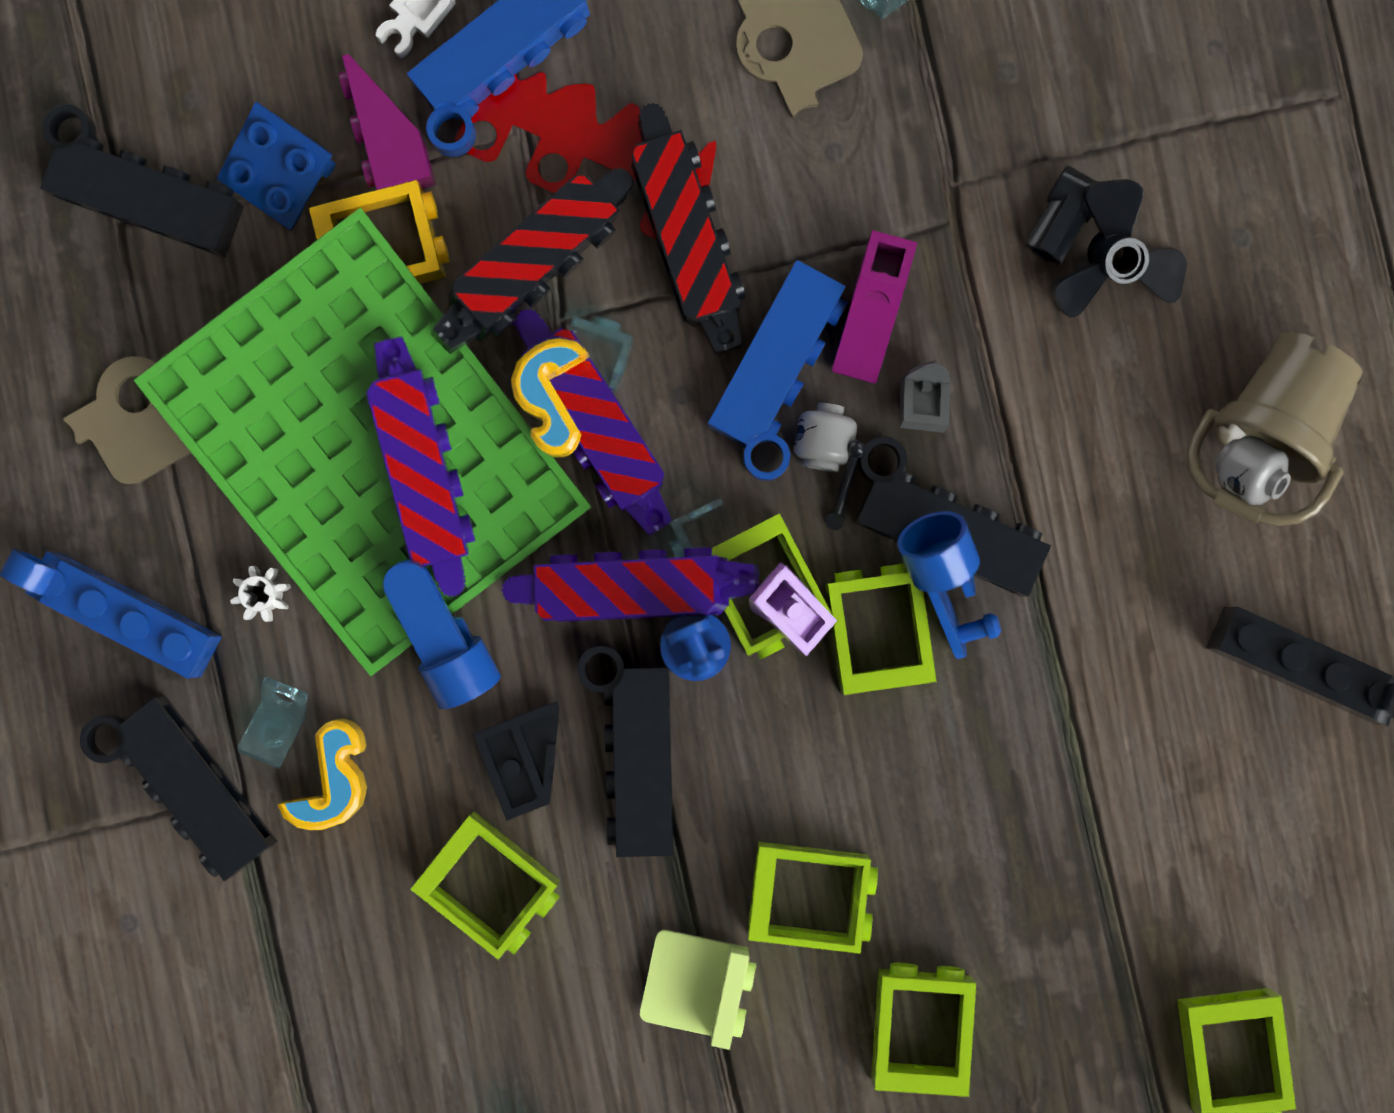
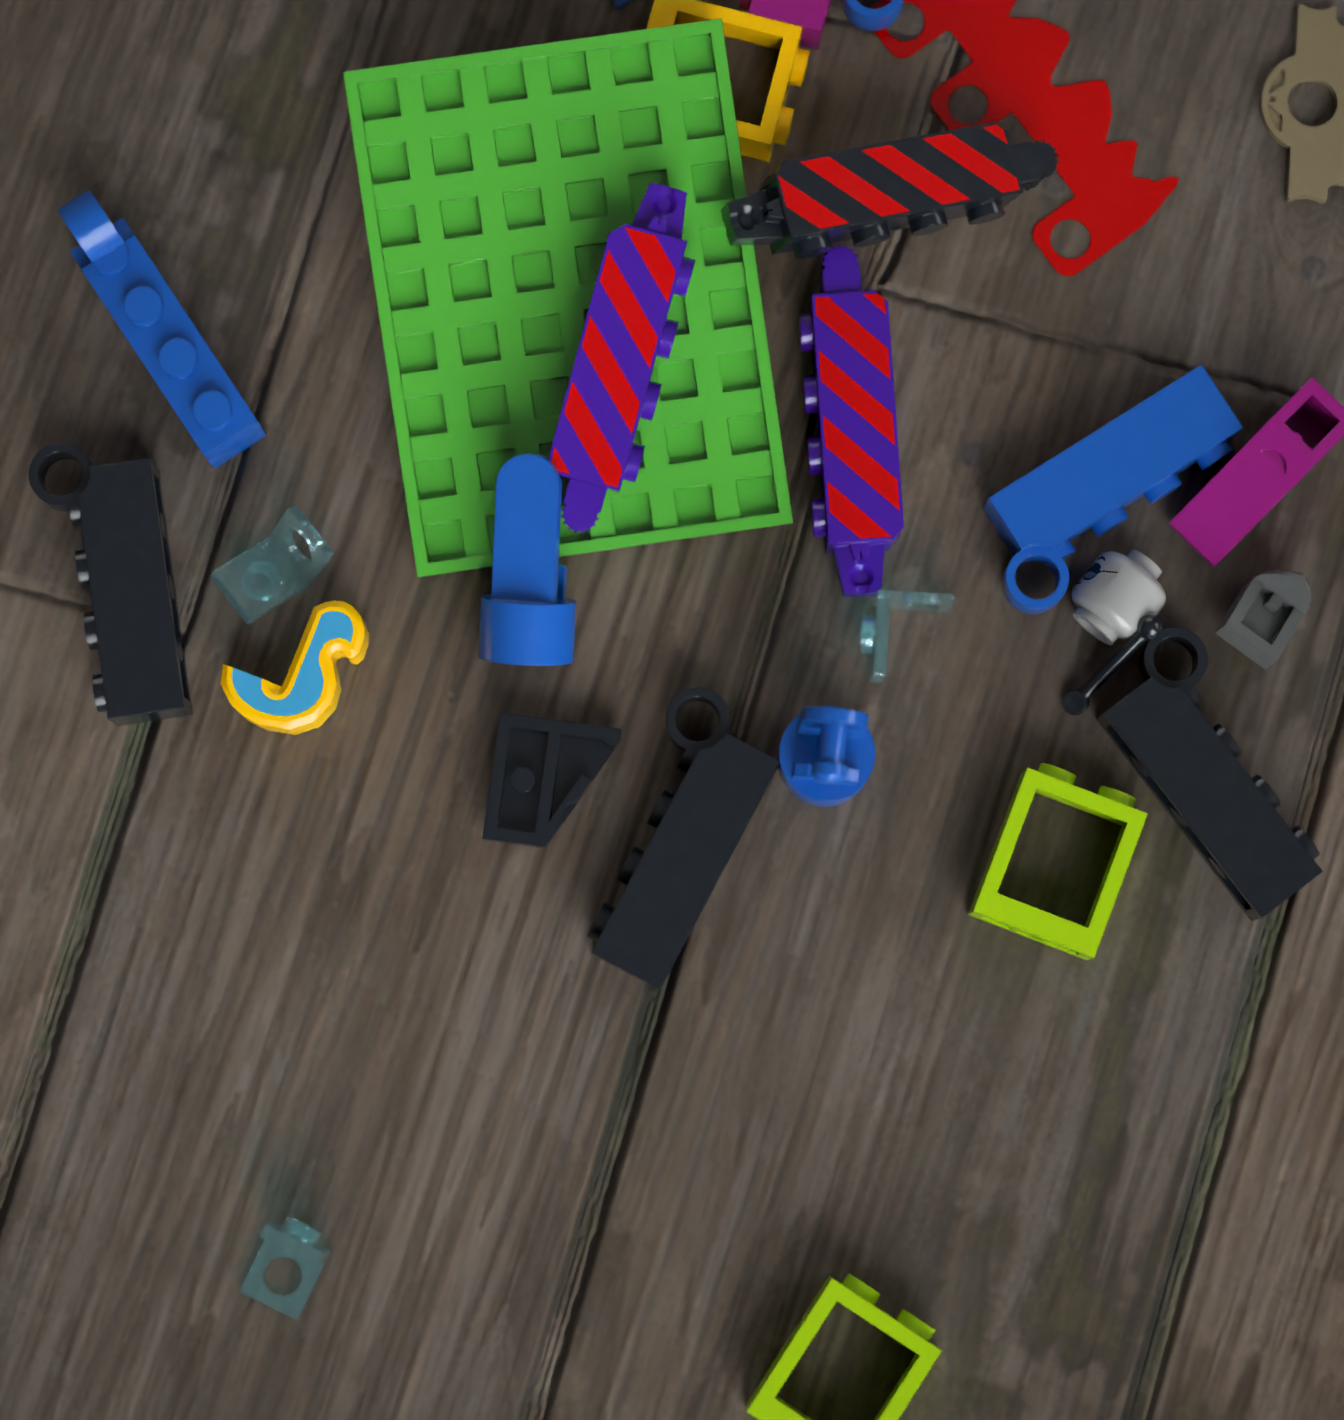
camera: 25 degrees right, 5 degrees down
(128, 442) = (287, 149): dark tan piece -> none
(248, 598) = (351, 394): white gear -> none
(455, 912) = (389, 844): lime window -> none
(539, 399) = (804, 356): animal -> none
(609, 332) = (928, 330): clear light blue bracket -> none
(633, 588) = (791, 641): dark purple hinge -> none
(685, 231) = (1086, 262): black hinge -> none
(697, 986) = (598, 1167): yellowish green bracket -> none
(773, 527) = (951, 667): lime window -> none
(792, 609) = (968, 767): slope -> none
(859, 922) = (869, 1157): lime window -> none
(938, 559) = (1184, 803): blue piece -> none

